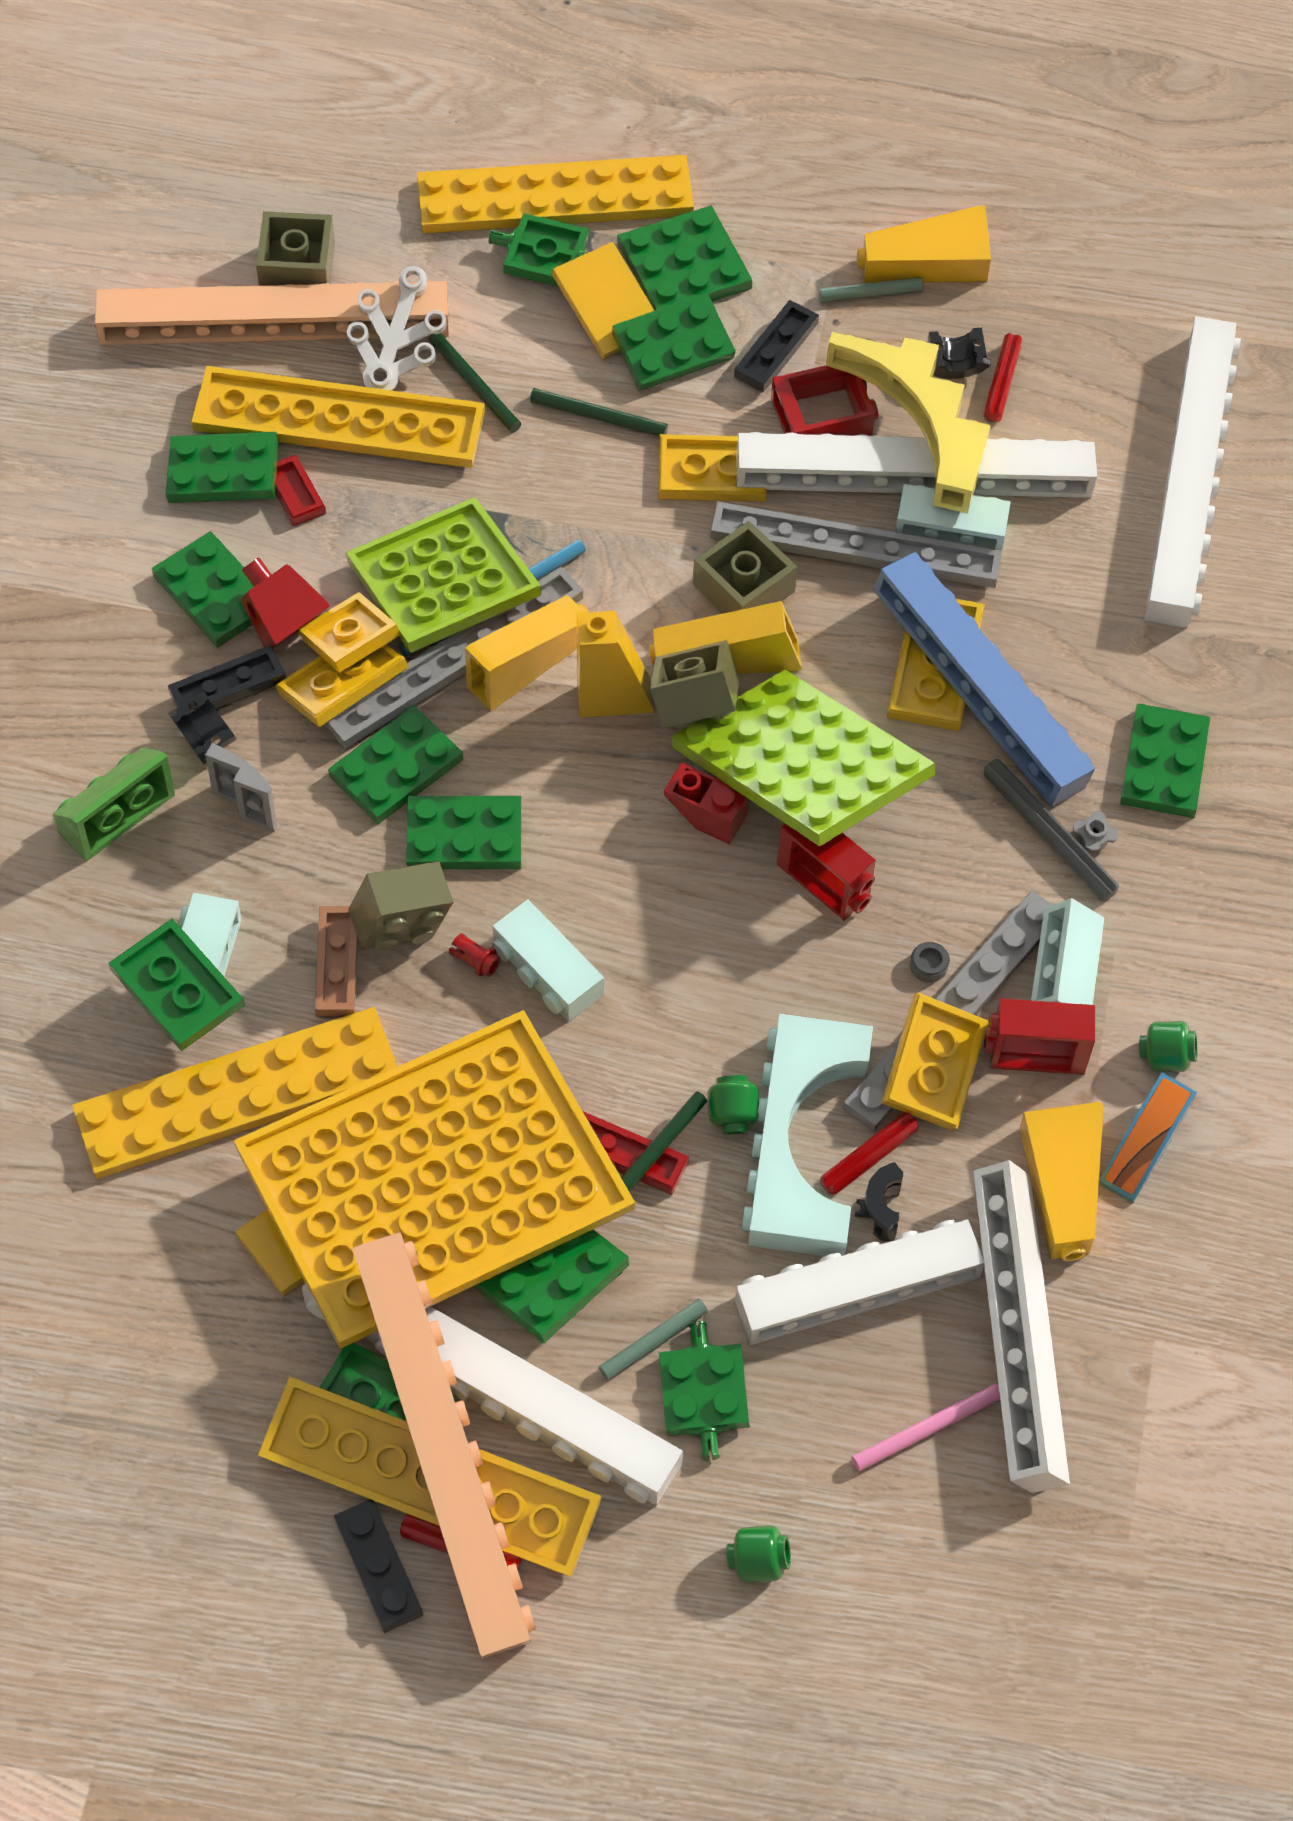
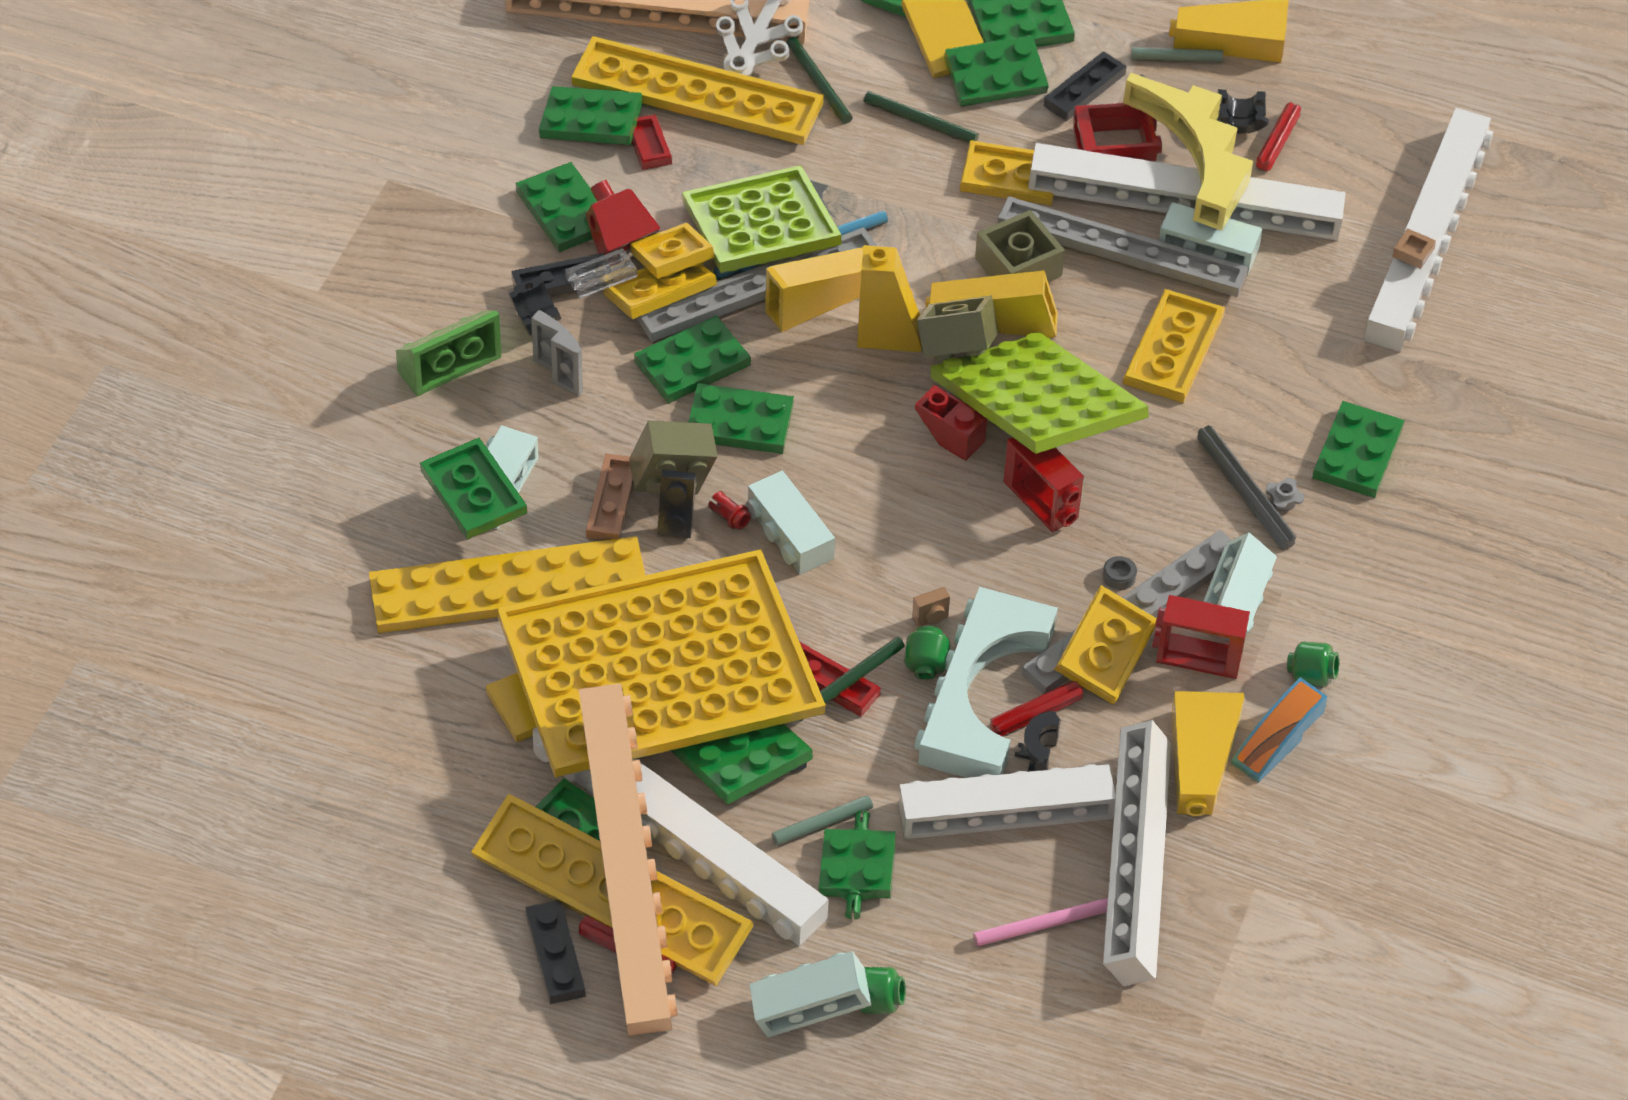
camera: 10 degrees right, 10 degrees down
(276, 678) = (603, 276): none -> clear tile
(414, 962) = (676, 503): none -> black plate
(684, 1578) = (810, 994): none -> light aqua brick
(727, 1045) = (931, 607): none -> medium nougat plate
(984, 679) = (1211, 361): medium blue brick -> none
(1185, 504) = (1414, 248): none -> medium nougat plate

